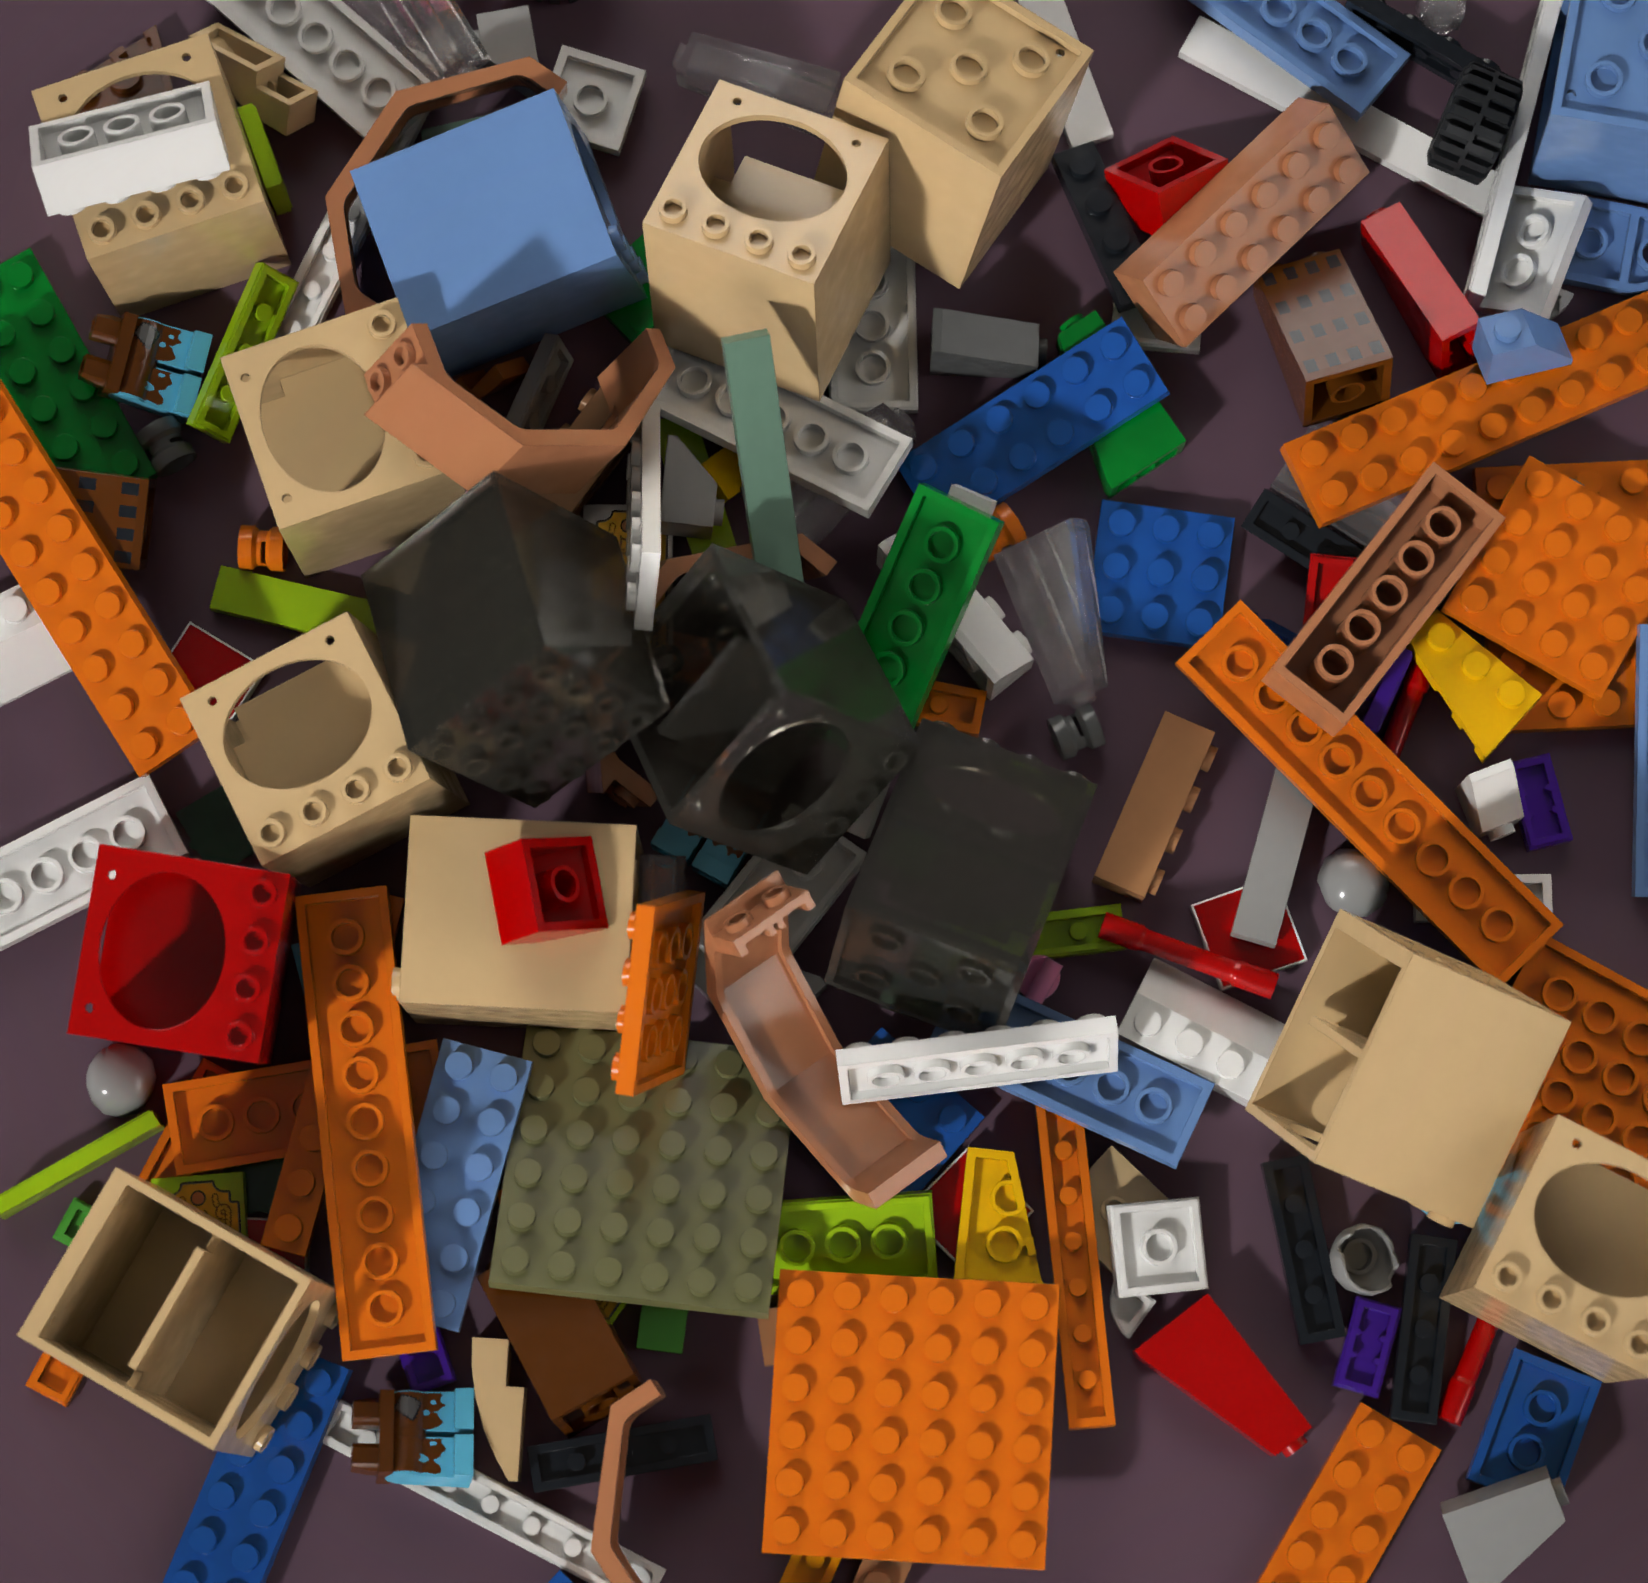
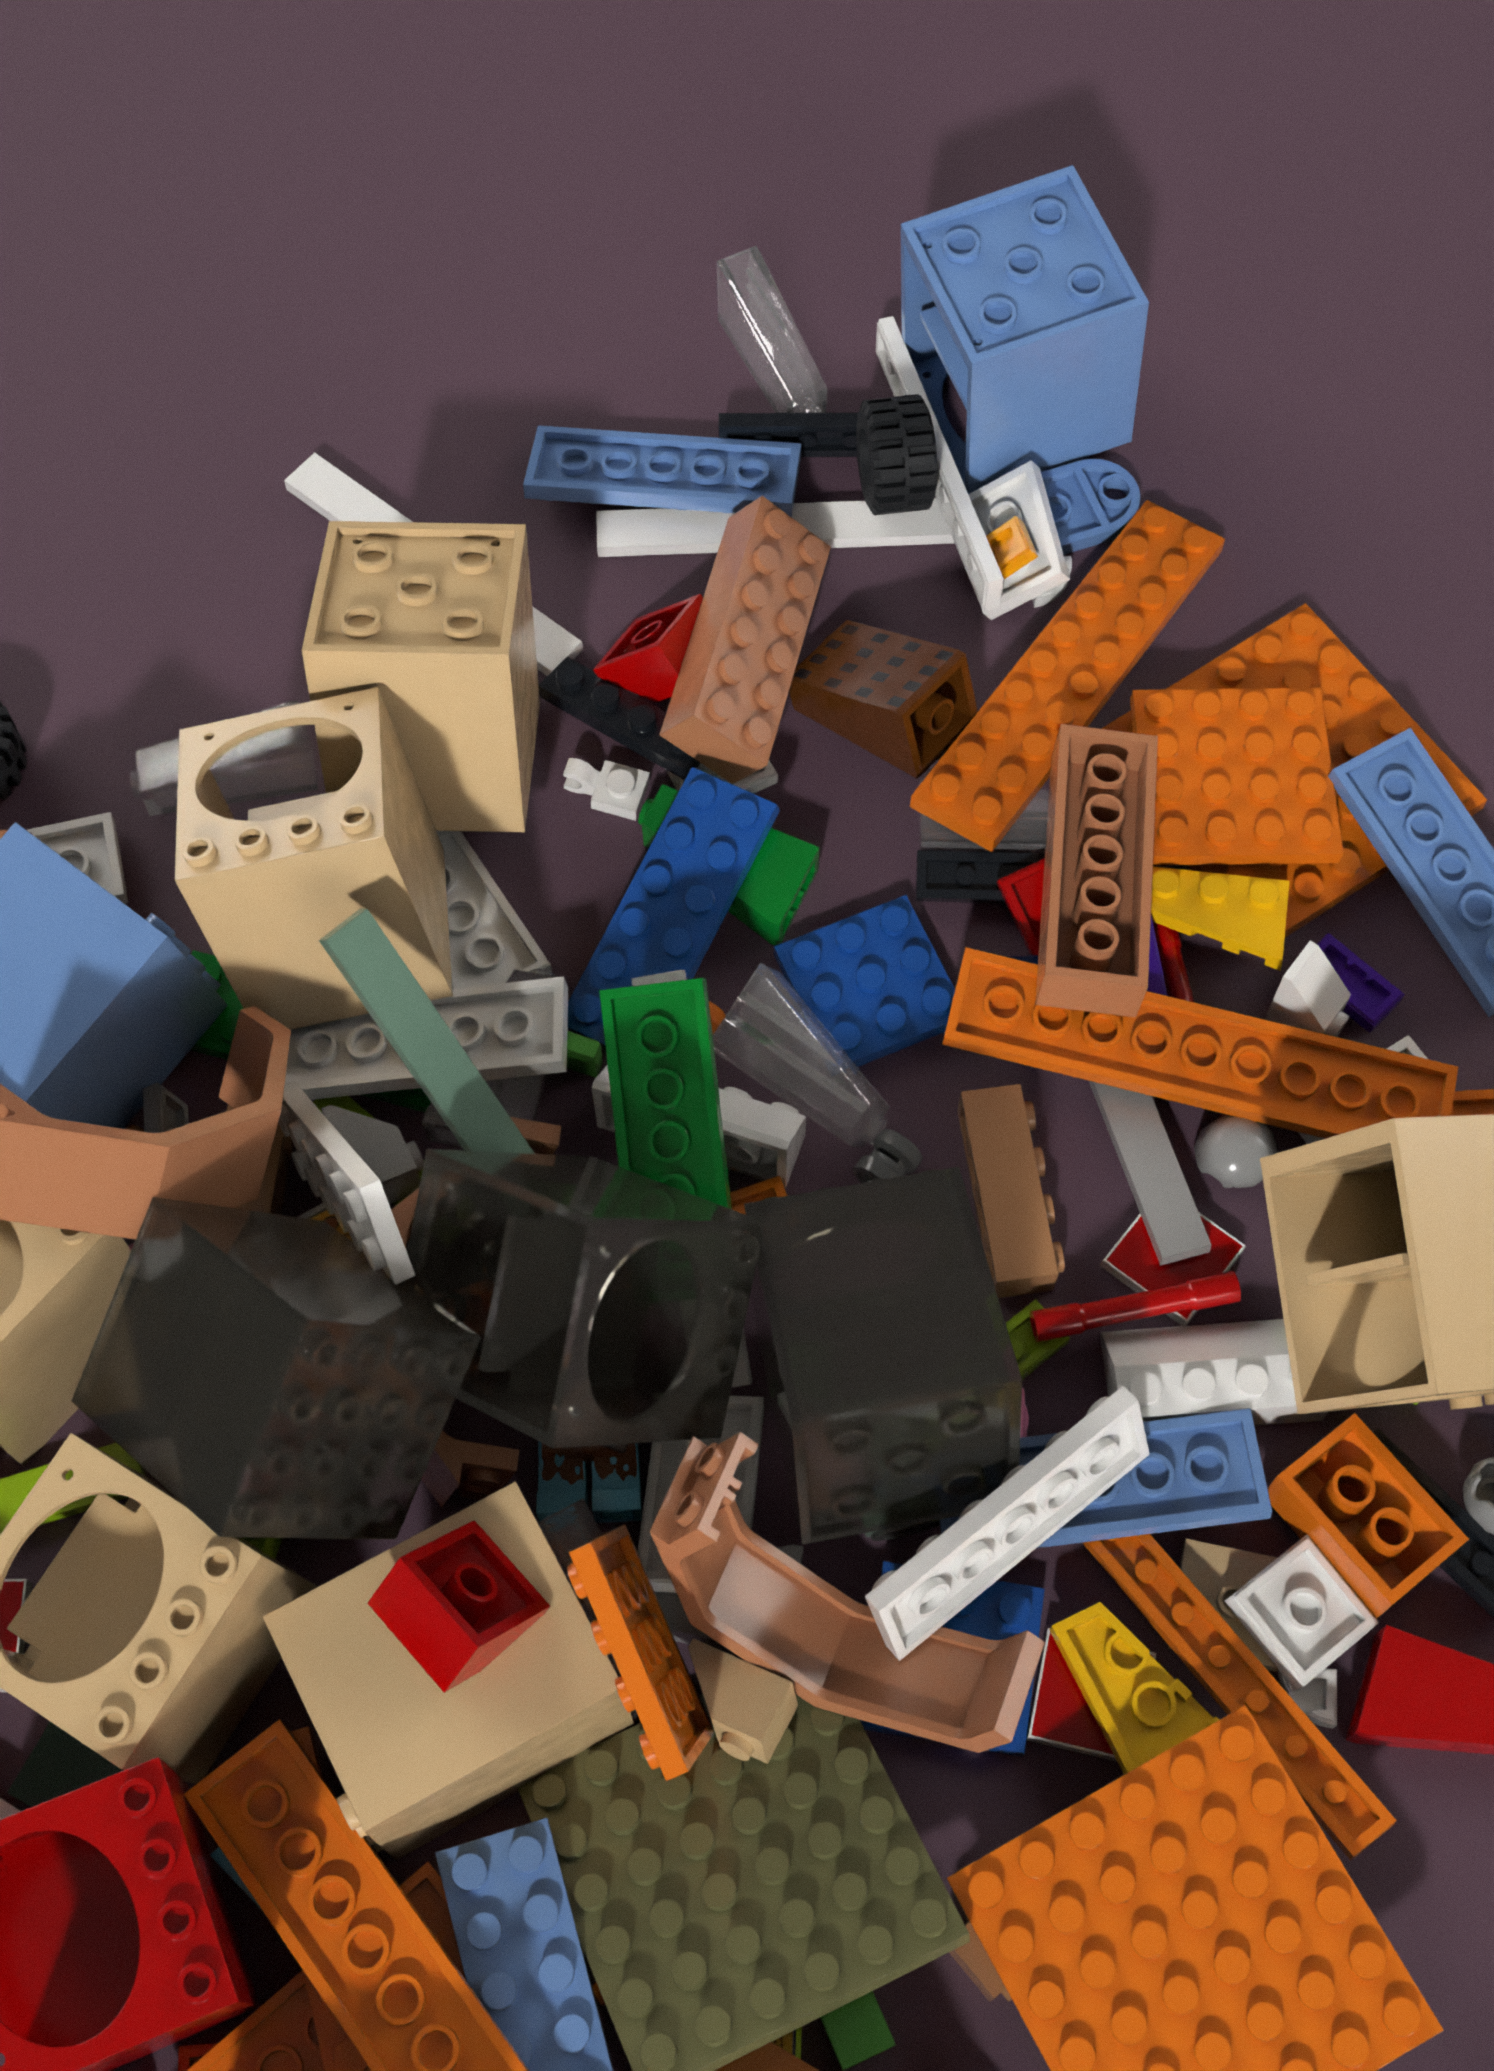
camera: 30 degrees left, 15 degrees down
(713, 1066) = (743, 1701): none -> tan slope
(726, 472) = (404, 1113): yellow tile -> none
(855, 1238) = (1001, 1791): lime tile -> none
(896, 500) = (583, 1054): none -> bright green tile
(984, 346) = (575, 872): dark grey slope -> none
(1061, 284) = (613, 790): none -> white plate
(1249, 1209) = (1365, 1514): none -> orange slope
(1421, 289) = (944, 612): slope -> none
(1516, 263) = (1011, 546): none -> light orange tile
(1518, 345) = (1057, 606): medium blue slope -> none

